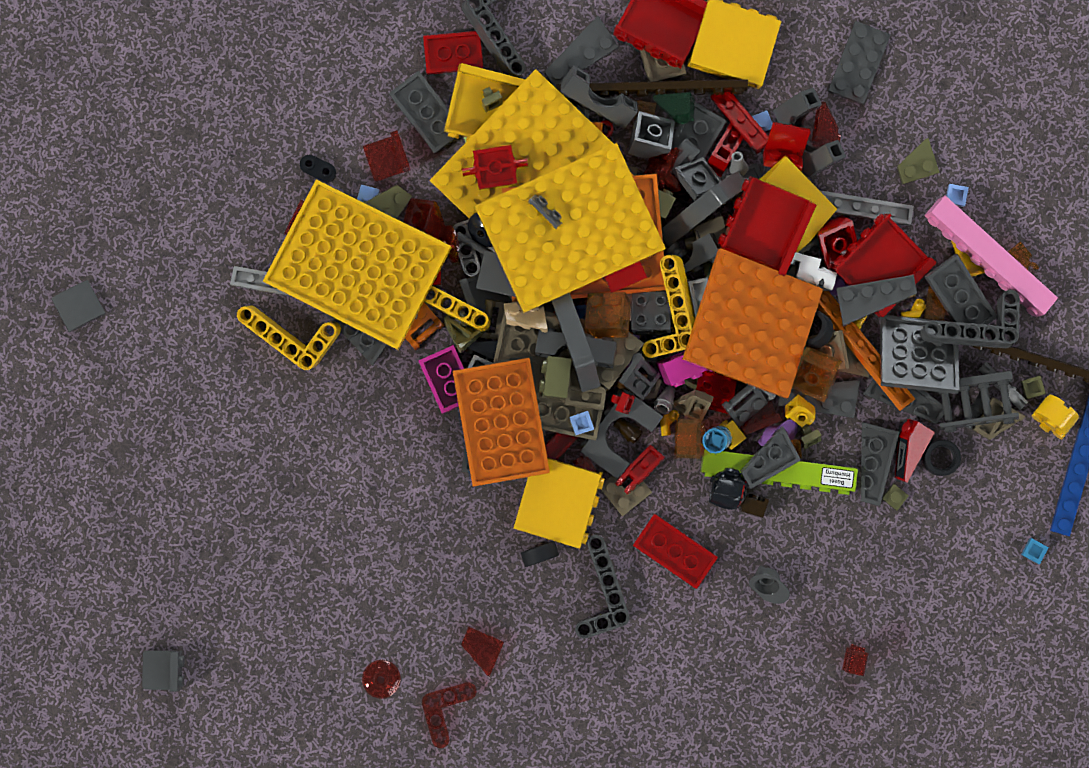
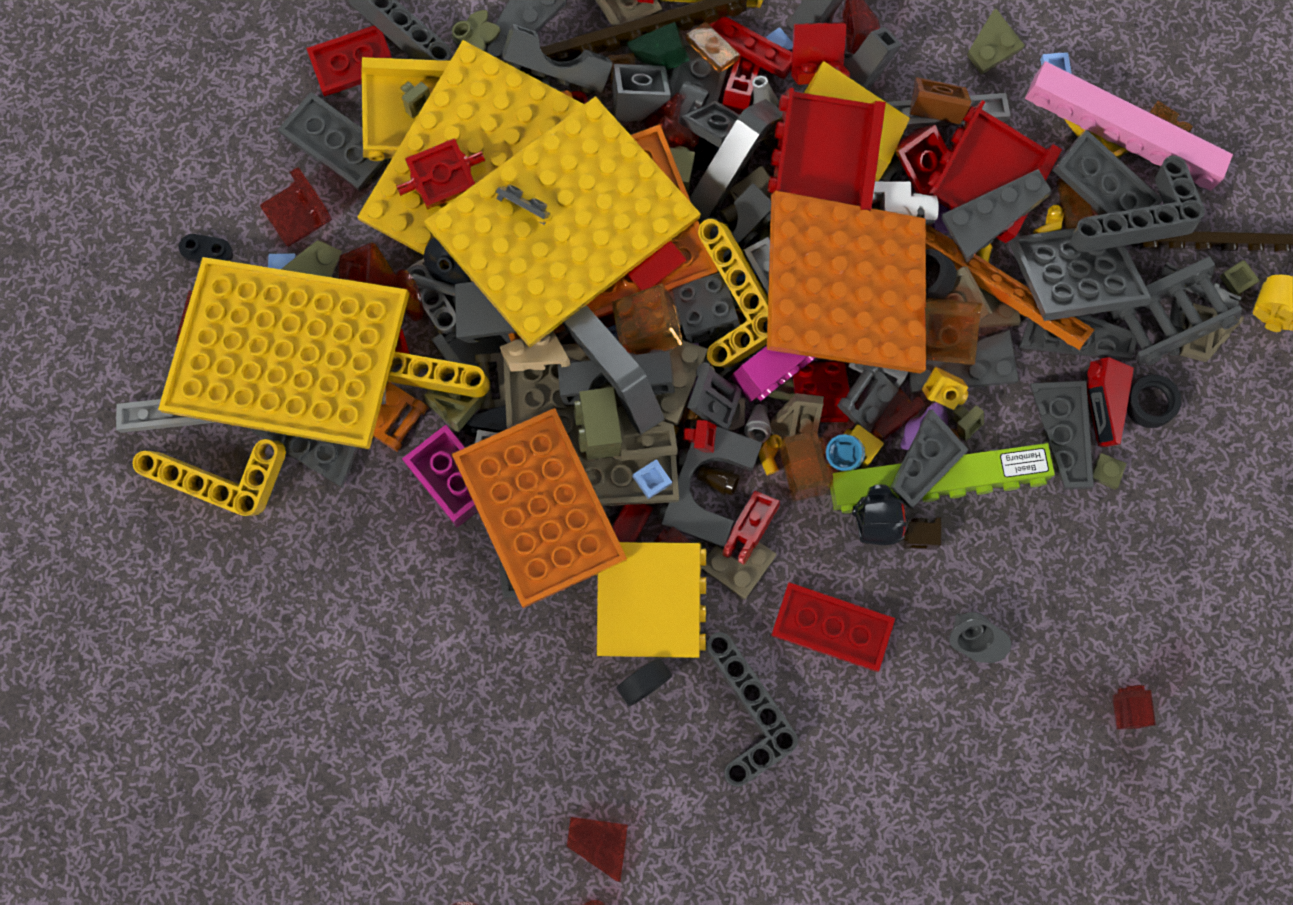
camera: 15 degrees left, 10 degrees down
(549, 58) = (476, 30): none -> olive plate
(713, 115) = (712, 47): none -> clear orange plate
(862, 200) = (939, 101): none -> dark orange slope

